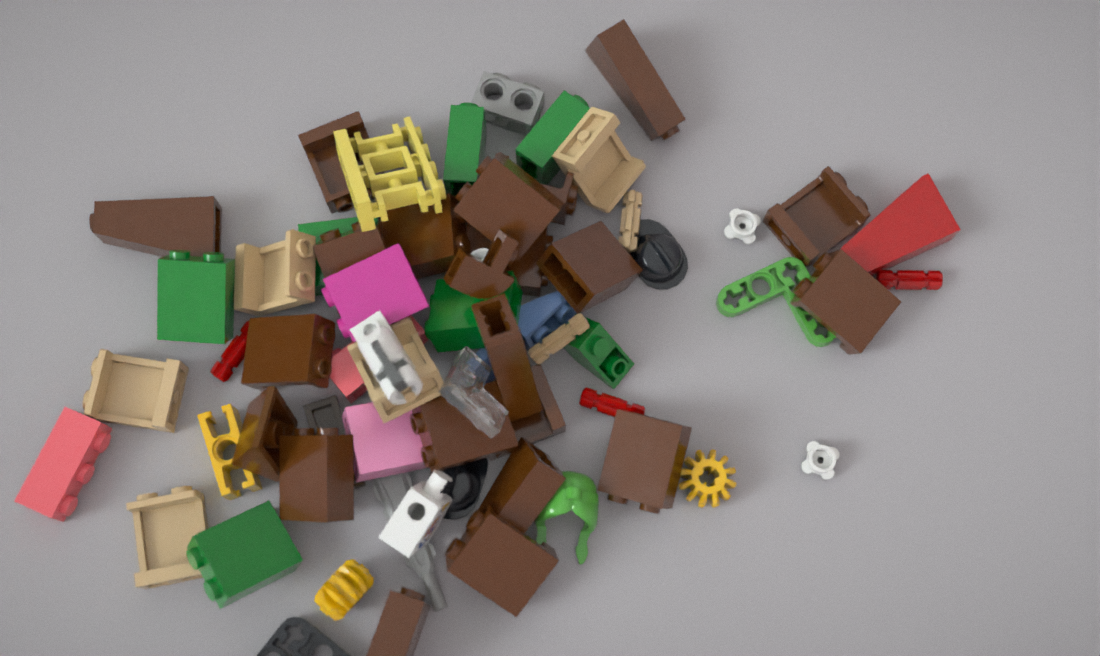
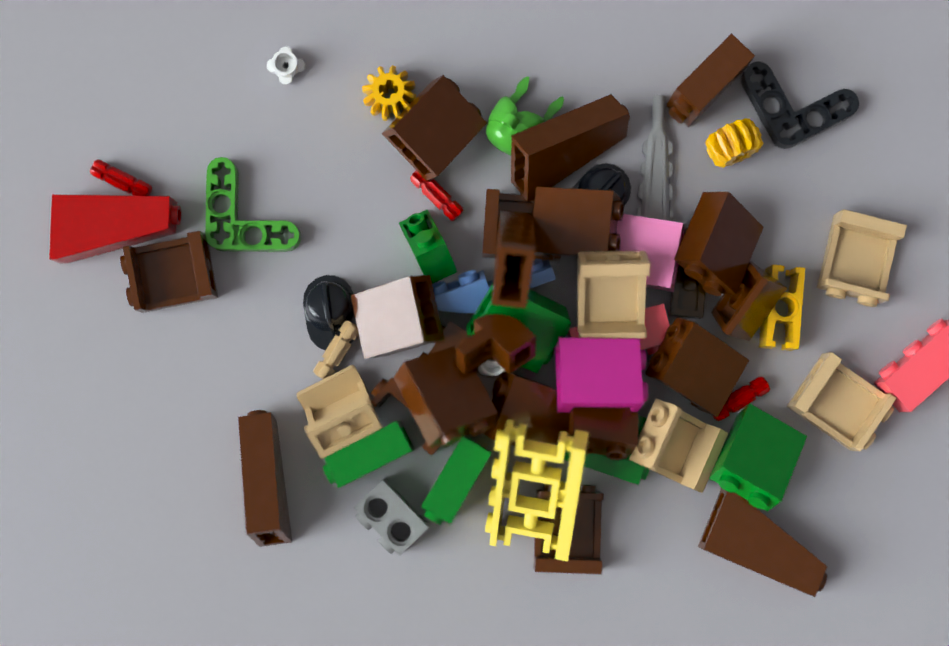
camera: 155 degrees left, 10 degrees up
(243, 554) = (806, 208): green brick -> none
(386, 357) = (620, 298): white plate -> none
(418, 515) = (641, 170): white torso -> none
(466, 392) = (562, 245): clear plate -> none
(500, 560) = (596, 101): reddish brown panel -> none
(558, 338) = (456, 262): tan axle -> none
(744, 217) = (229, 298): white plate -> none
(845, 300) = (190, 181): reddish brown panel -> none

